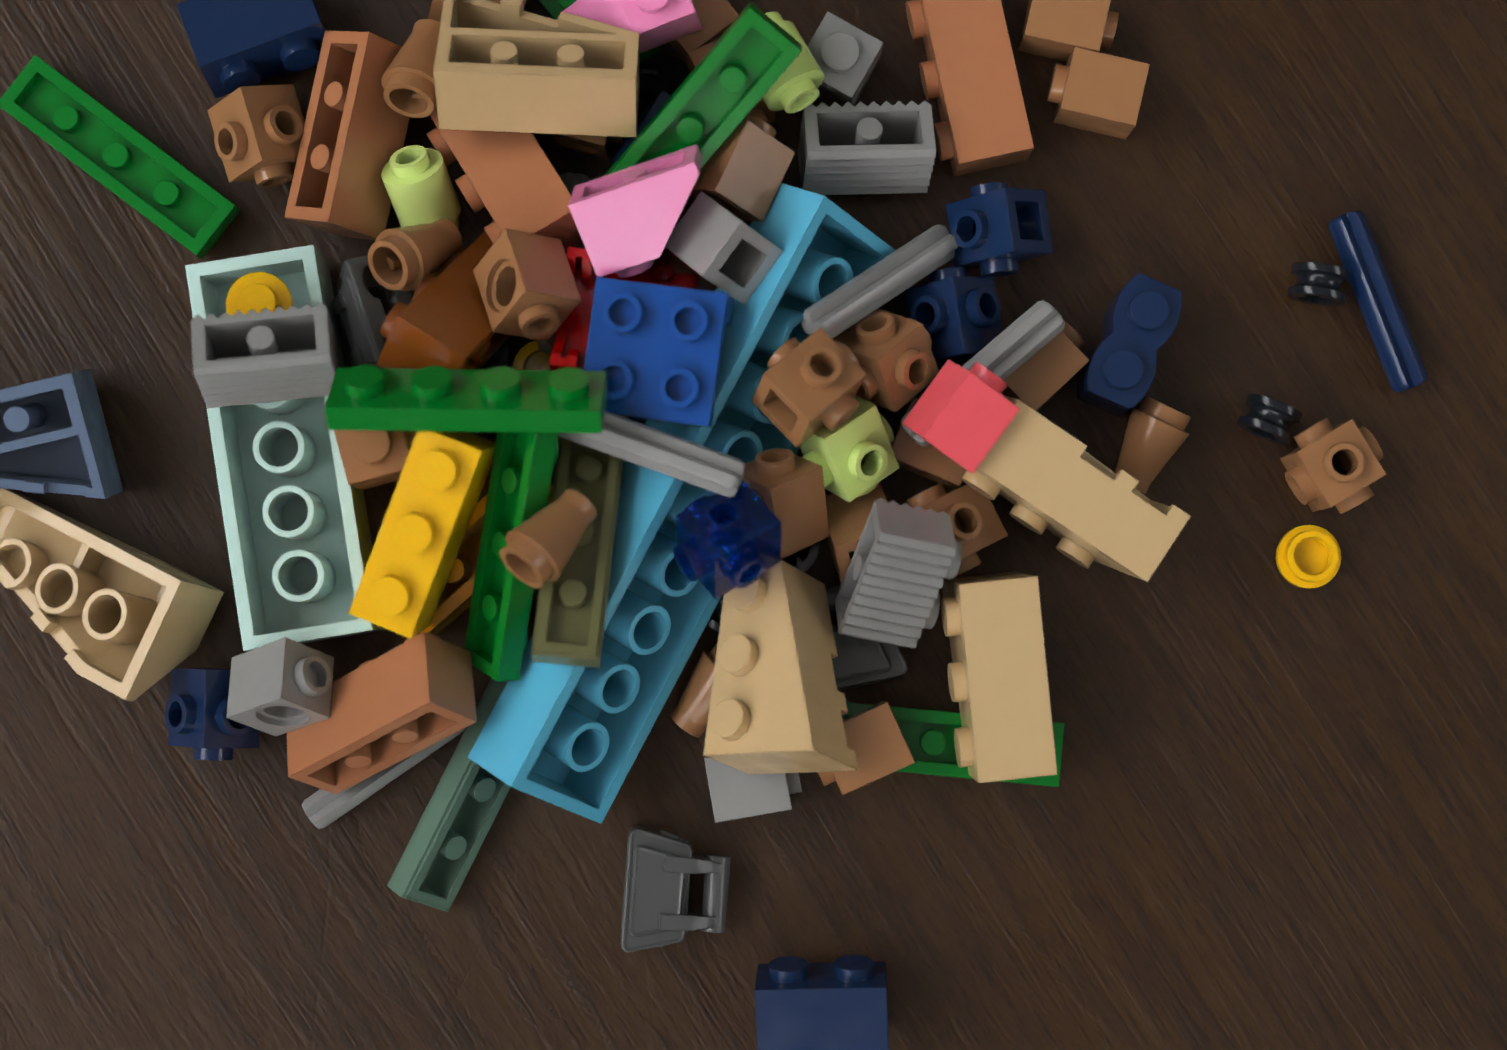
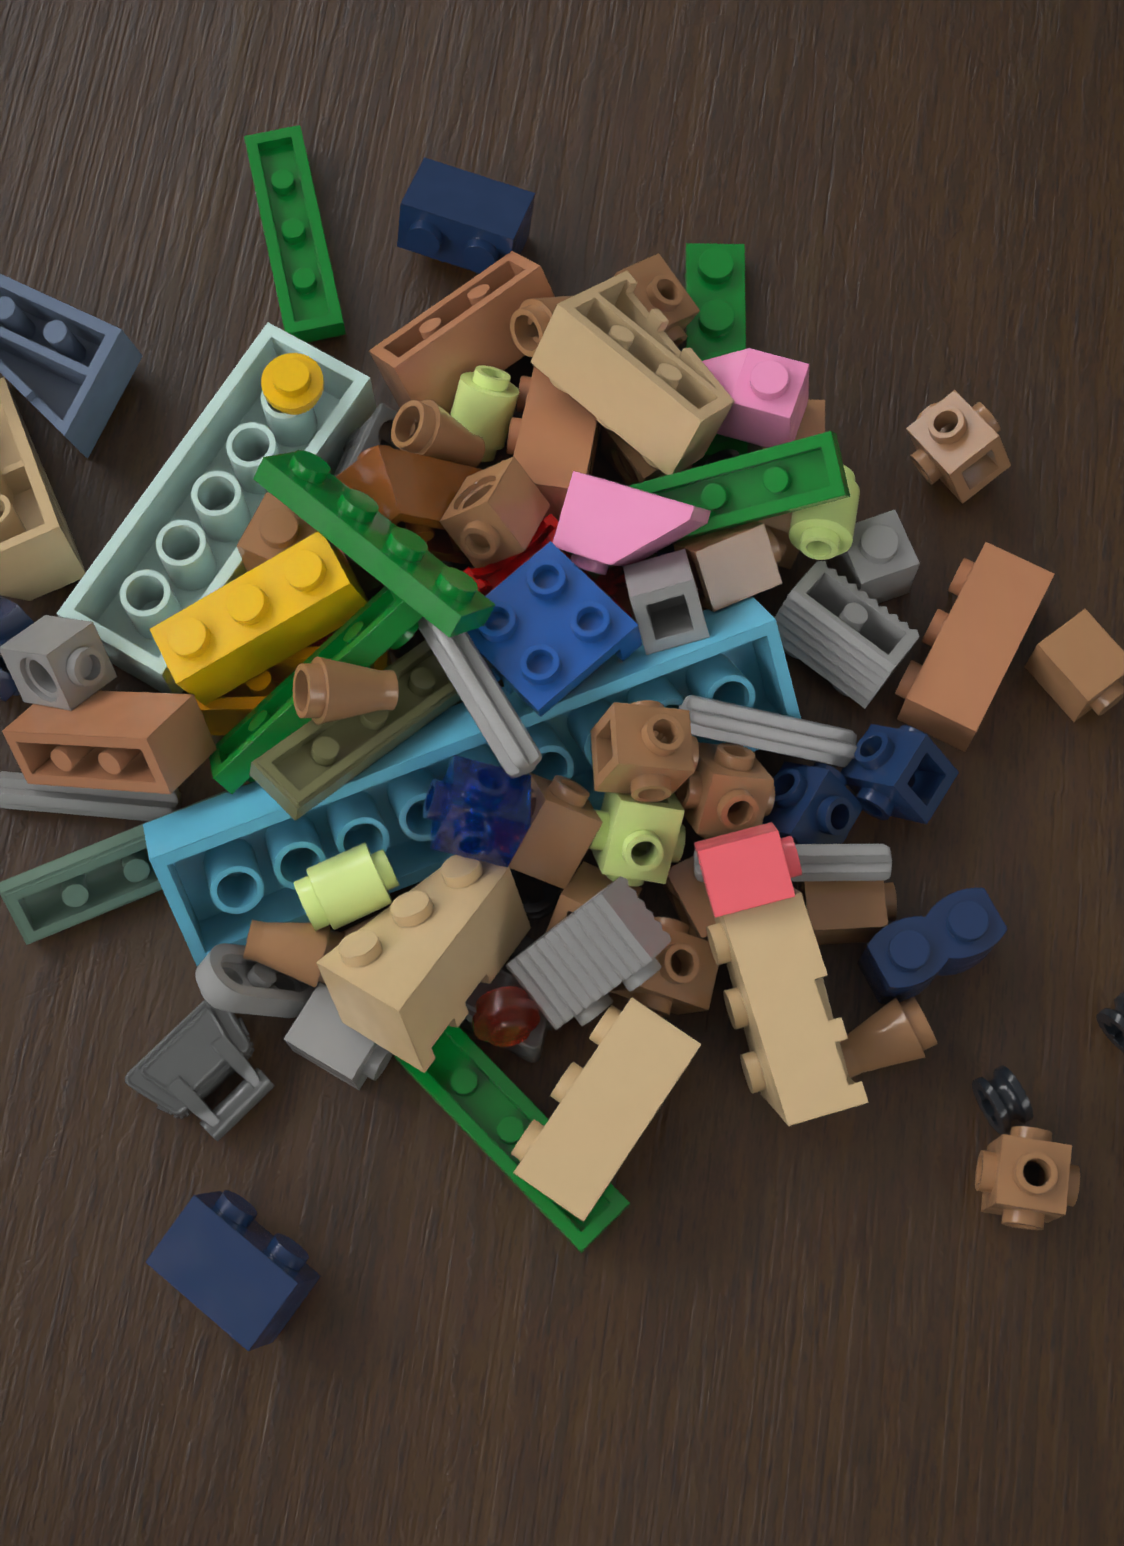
camera: 40 degrees right, 15 degrees down
(258, 133) = (403, 284): medium nougat brick -> none
(264, 355) = (258, 405): light grey brick -> none
(654, 795) = (248, 986): none -> light grey plate
(665, 750) = (291, 948): none -> medium nougat cone
(670, 677) = (346, 887): none -> yellowish green brick
(870, 671) = (505, 1016): none -> clear red plate
(877, 747) = (455, 1082): medium nougat brick -> none
(1098, 92) = (1063, 738): medium nougat brick -> none
(1308, 556) = (947, 1241): yellow plate -> none

